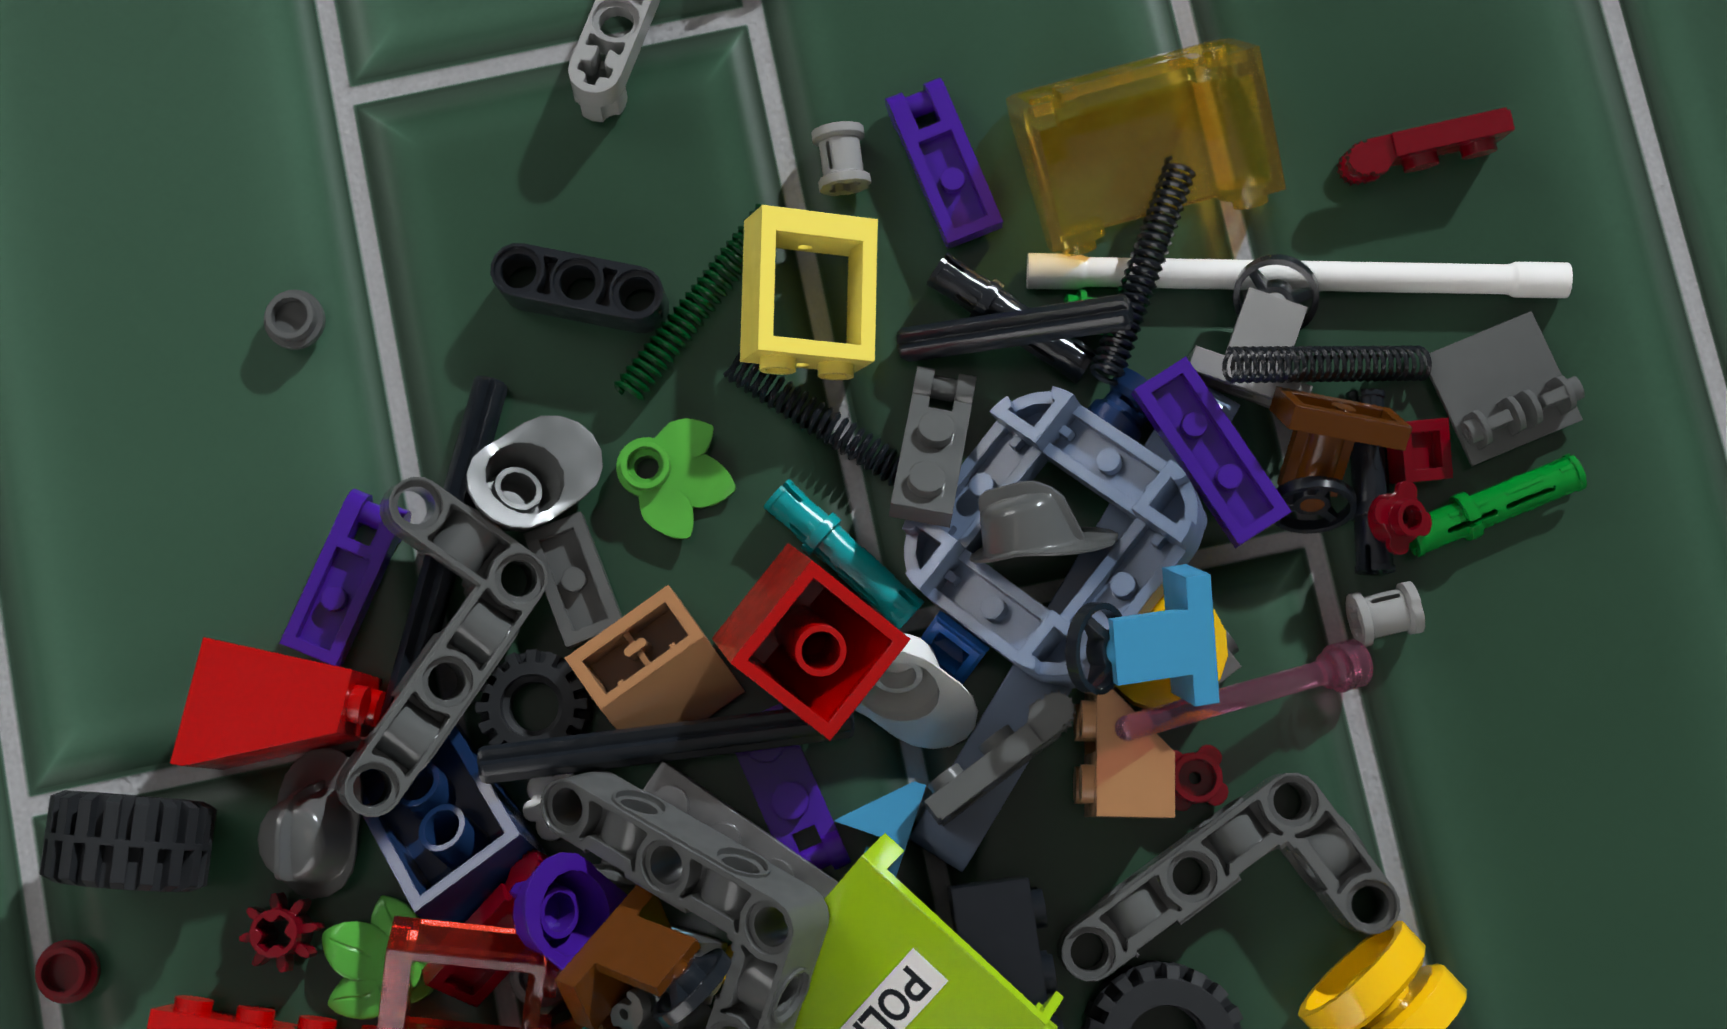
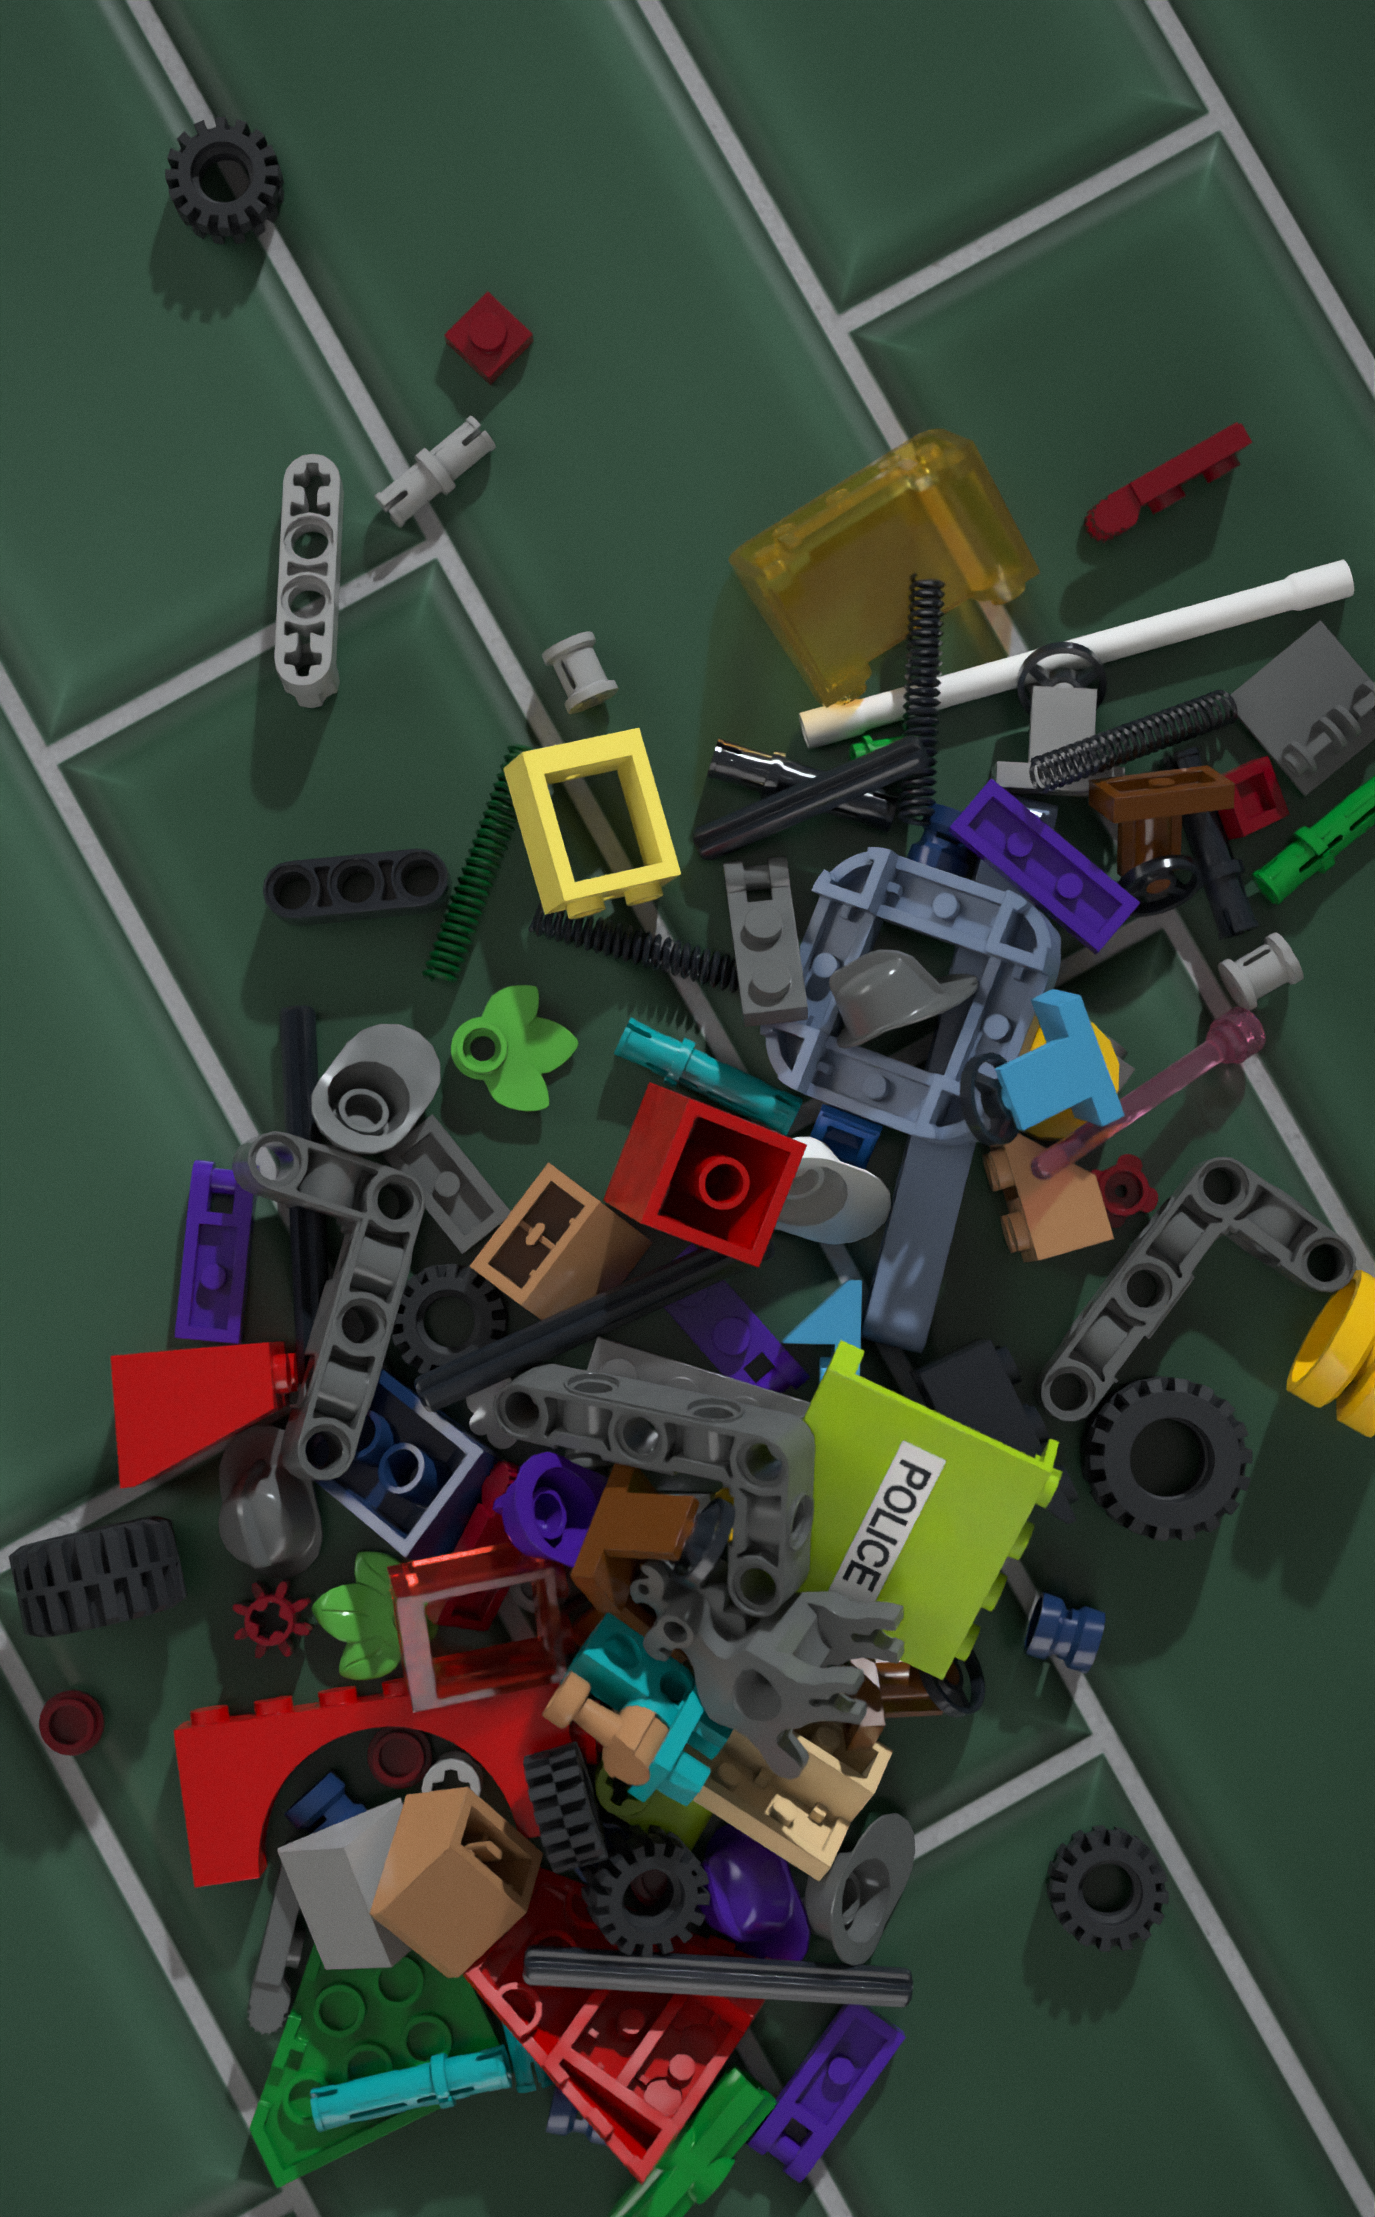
camera: 25 degrees left, 5 degrees up
(294, 319) = (75, 1006): dark grey plate -> none
(945, 164) = (686, 646): dark purple plate -> none
(1003, 755) = (929, 1229): dark grey hinge -> none
(1398, 518) = (1247, 874): dark red plate -> none

